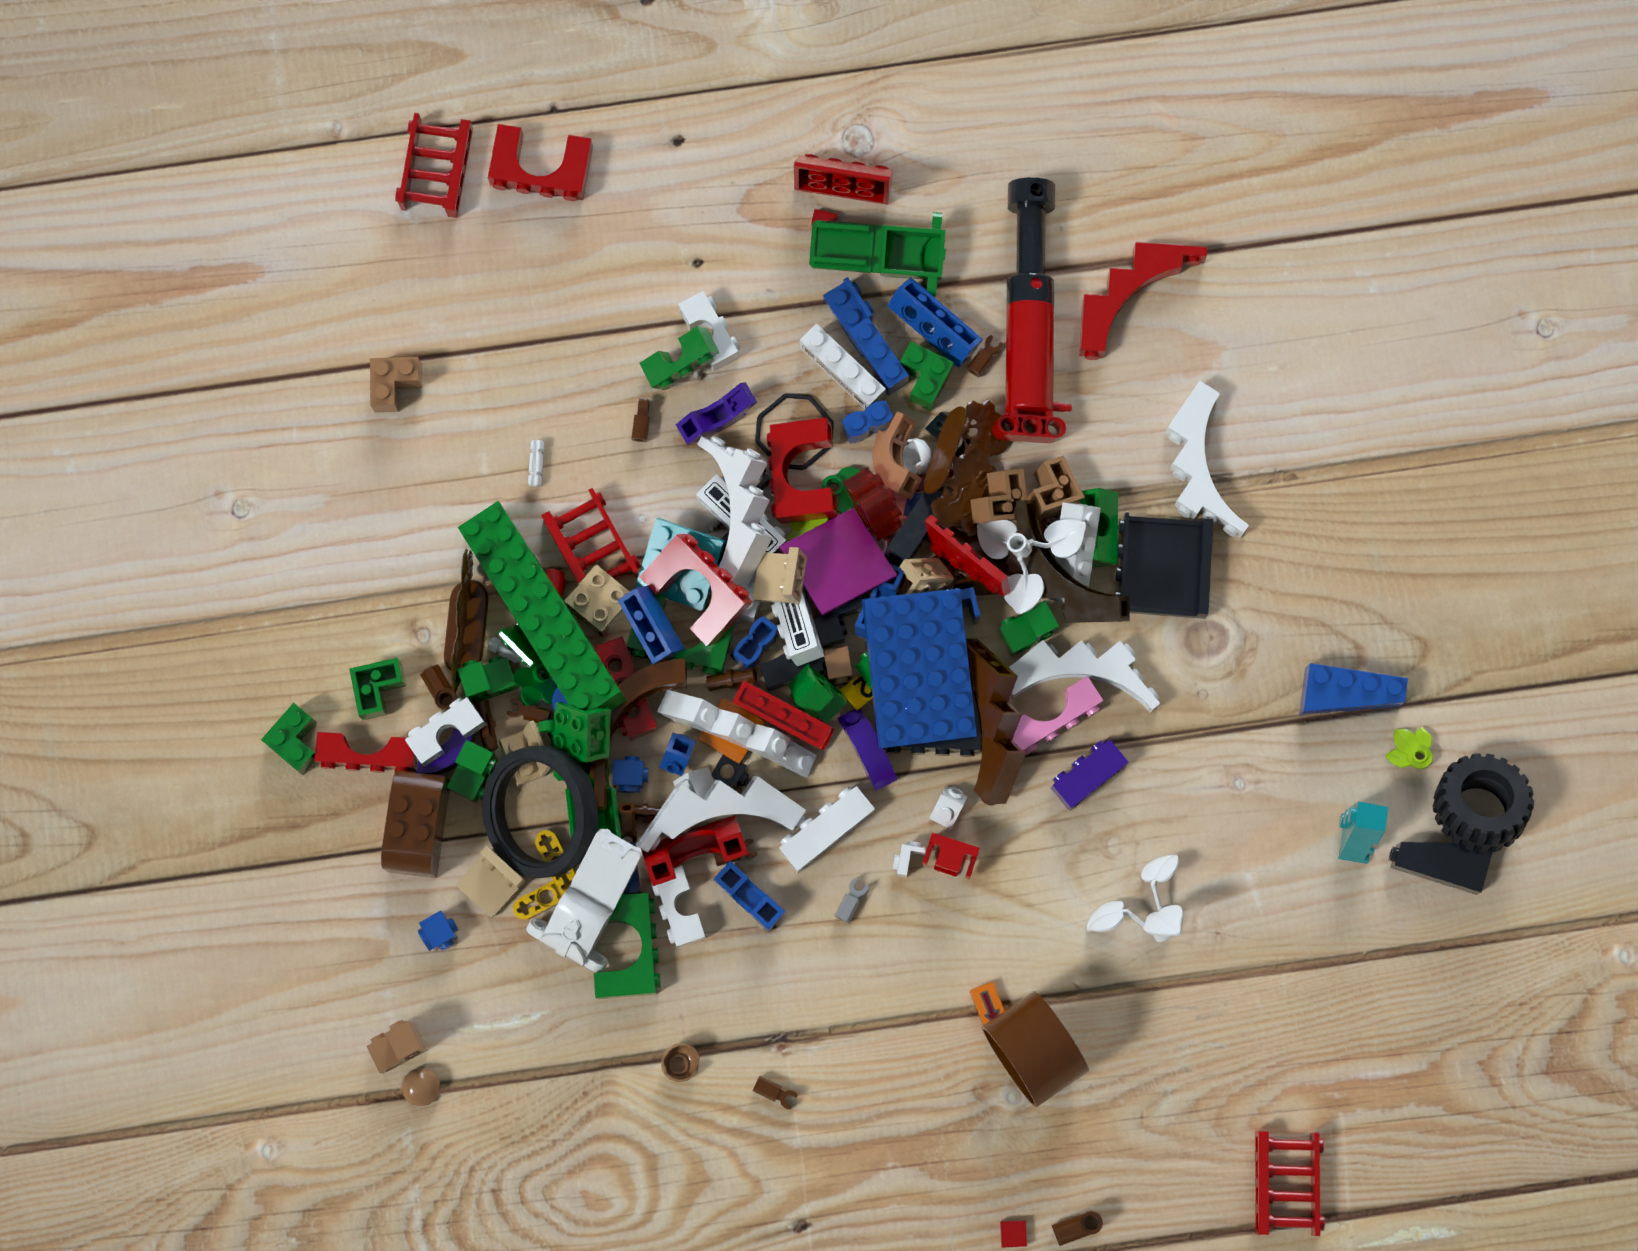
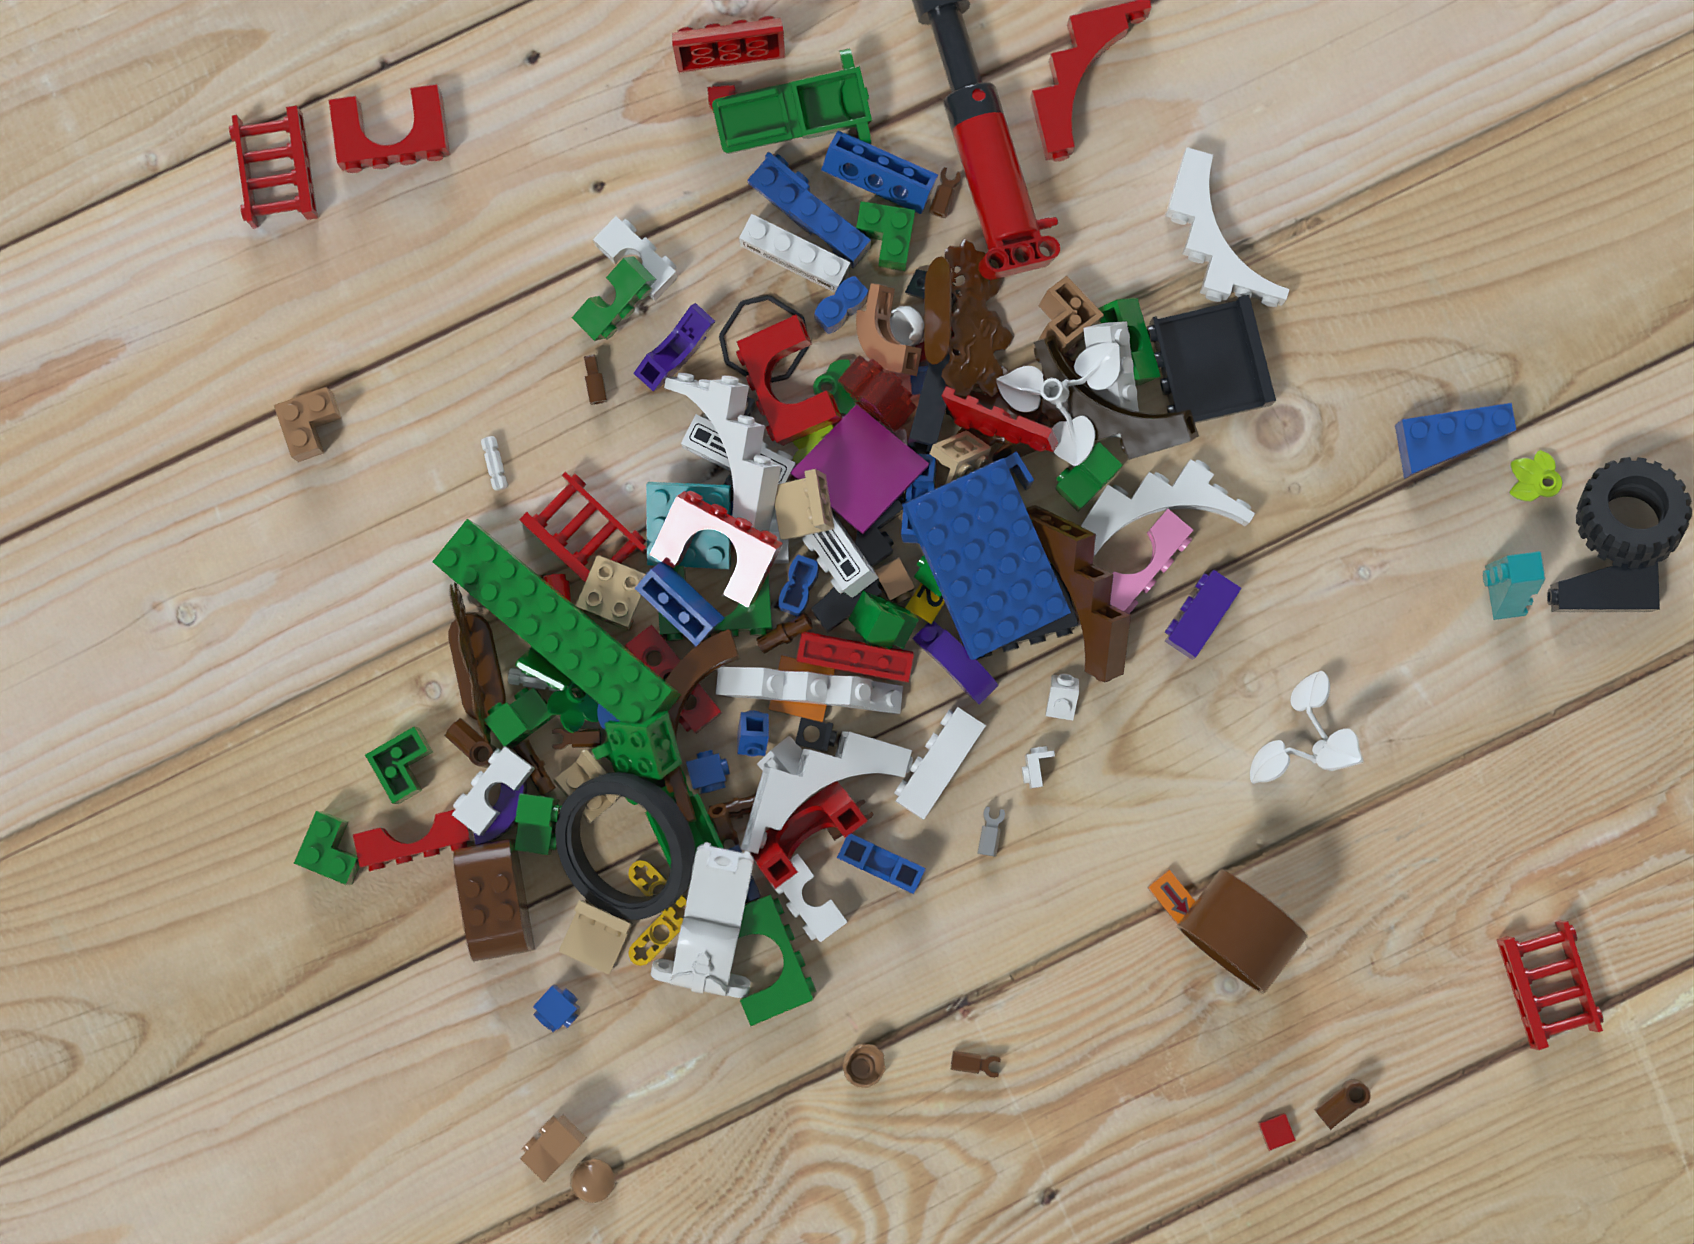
camera: 20 degrees left, 5 degrees up
(951, 855) = (1083, 750): red panel -> none
(1004, 491) = (1016, 335): medium nougat brick -> none

